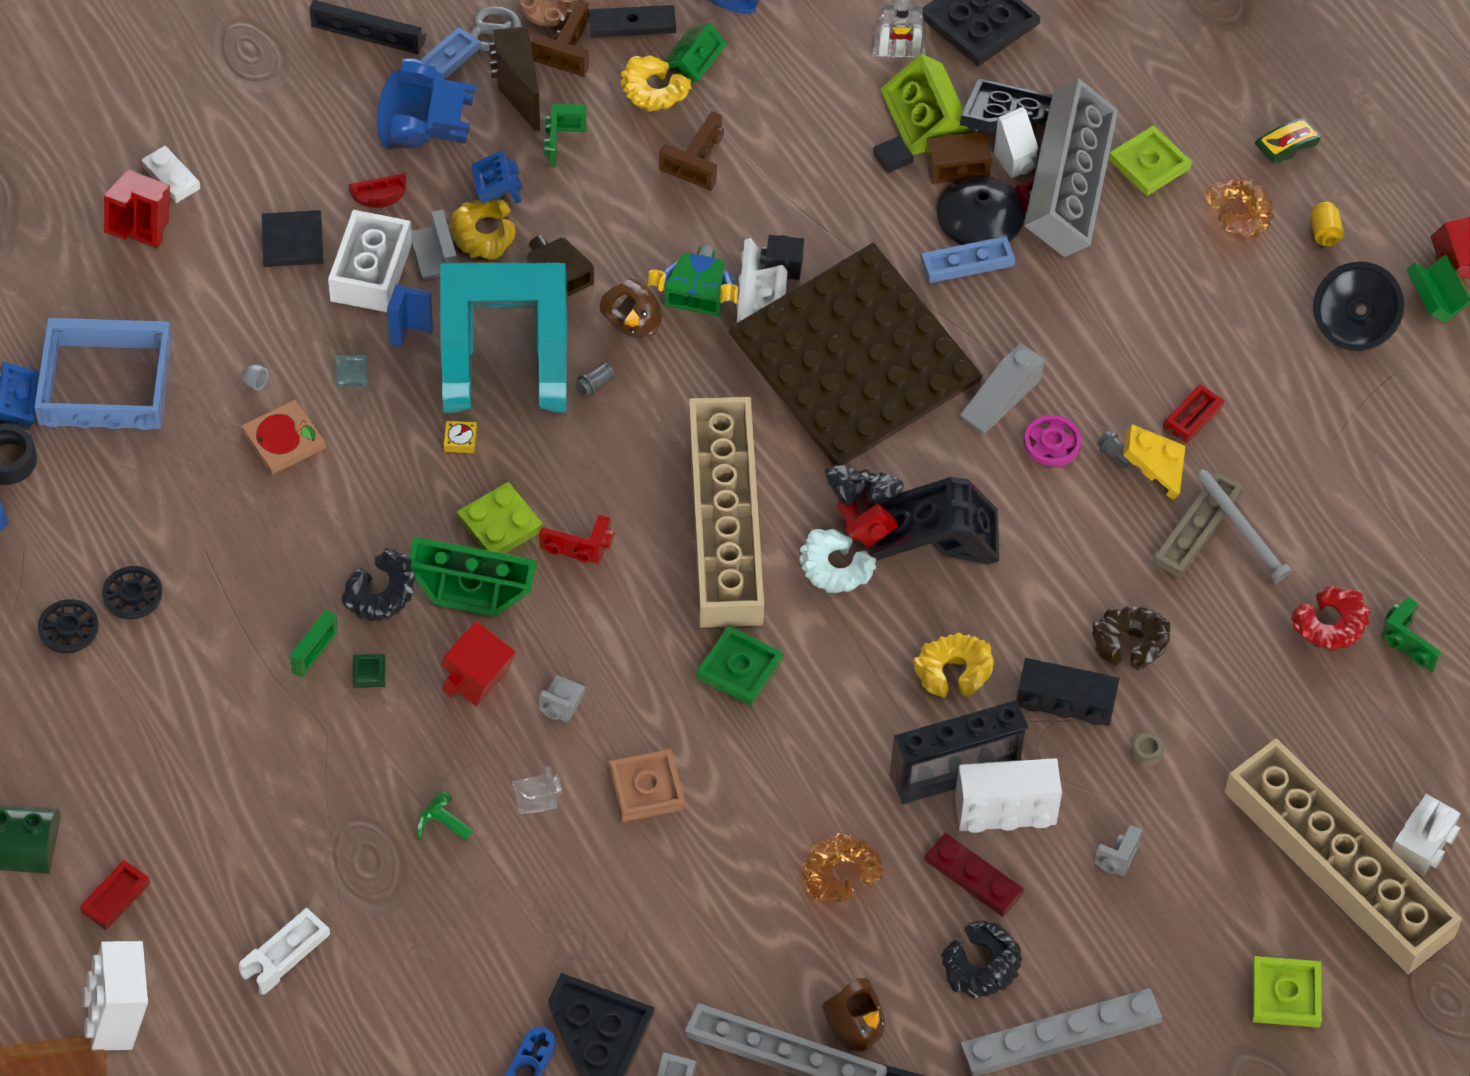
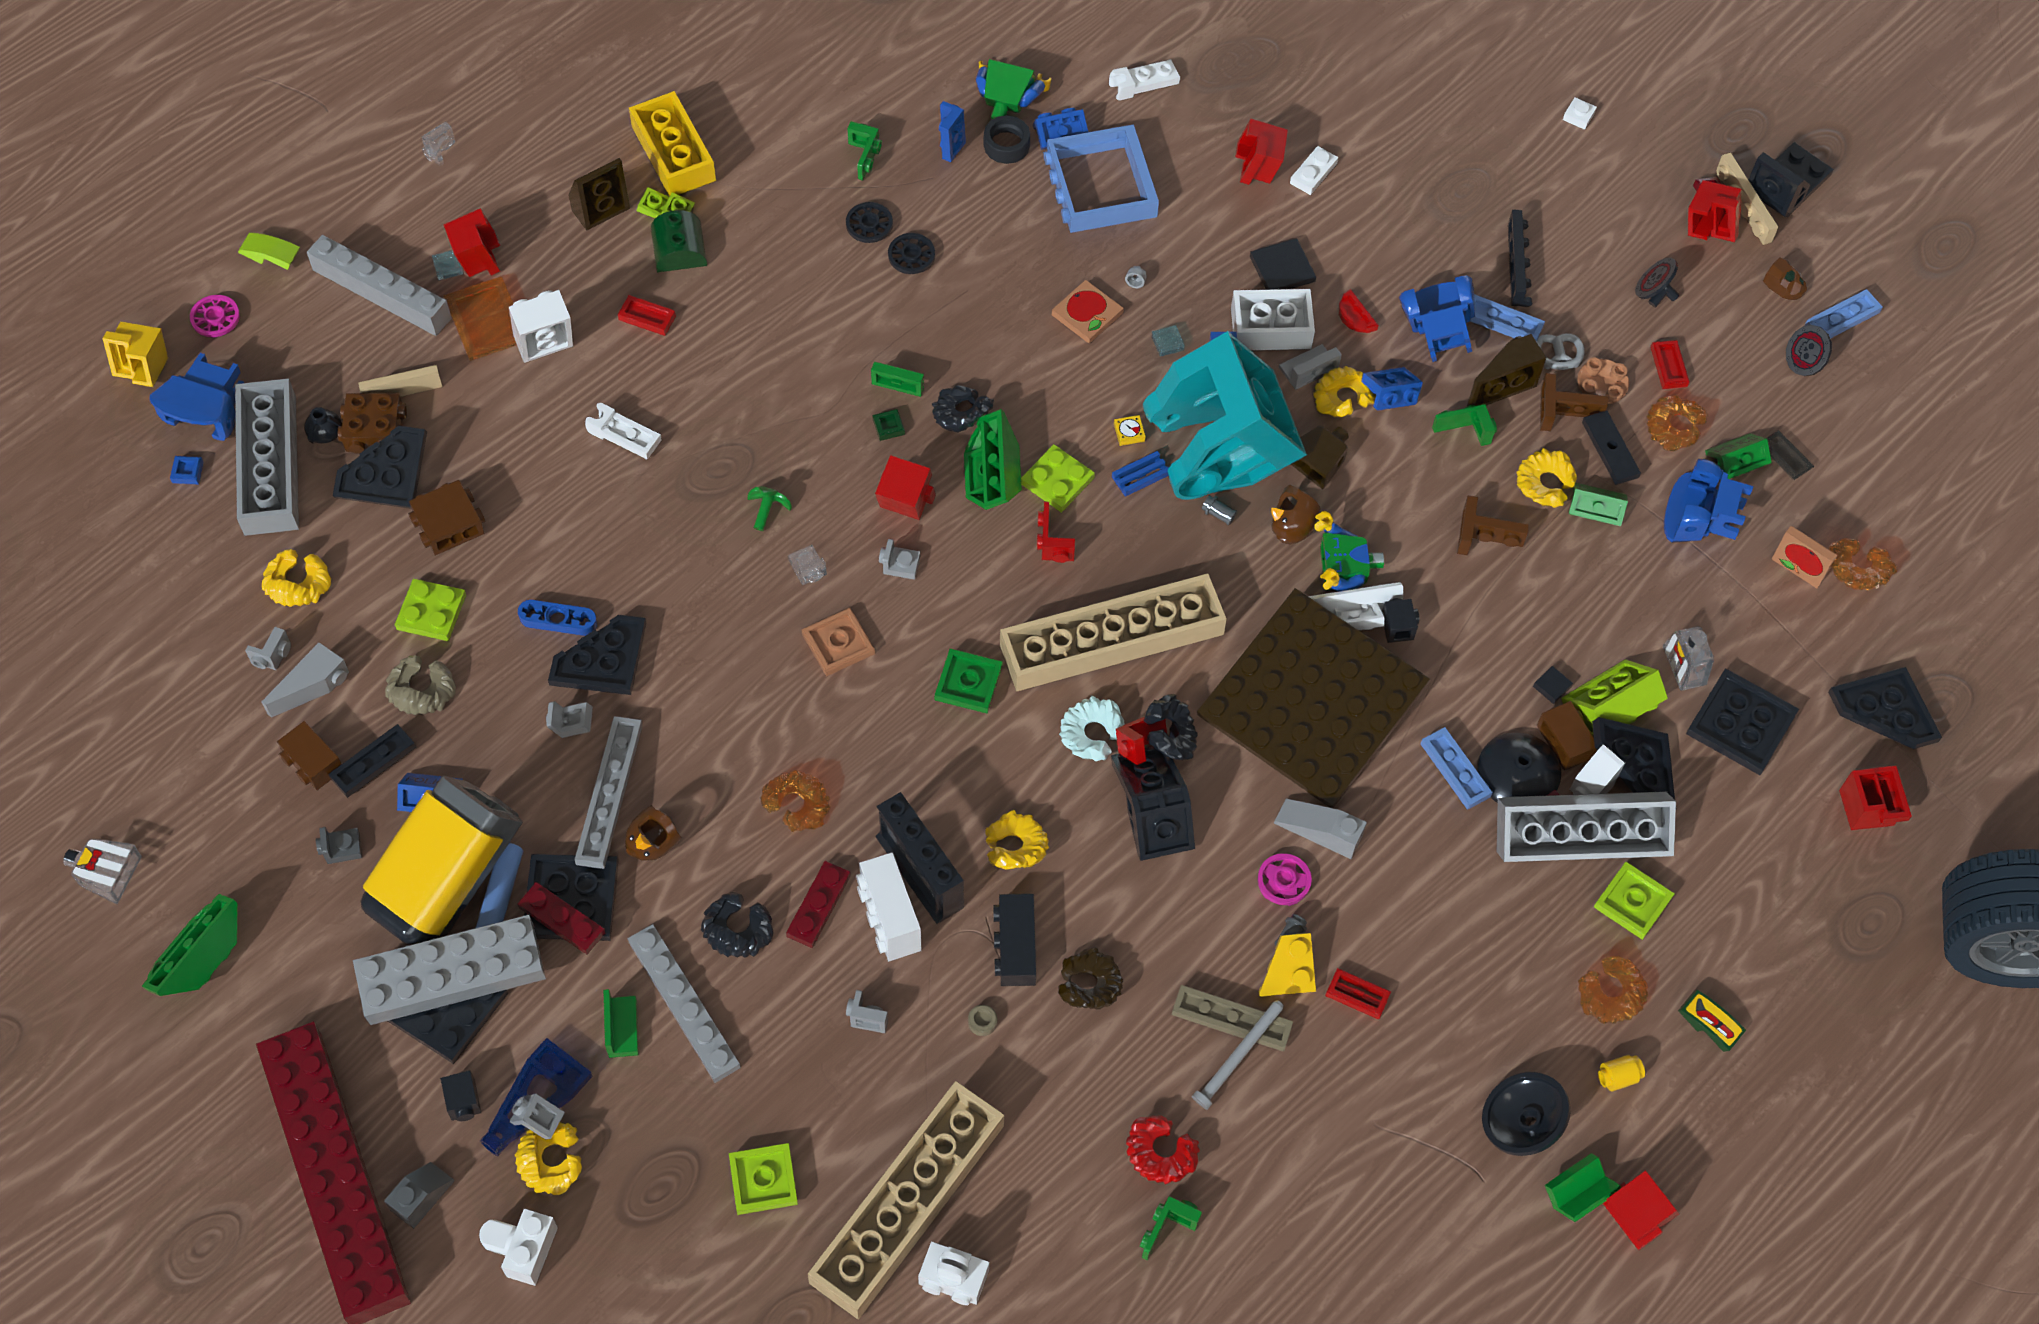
camera: 75 degrees right, 5 degrees up
(517, 421) = (1138, 470): none -> blue tile

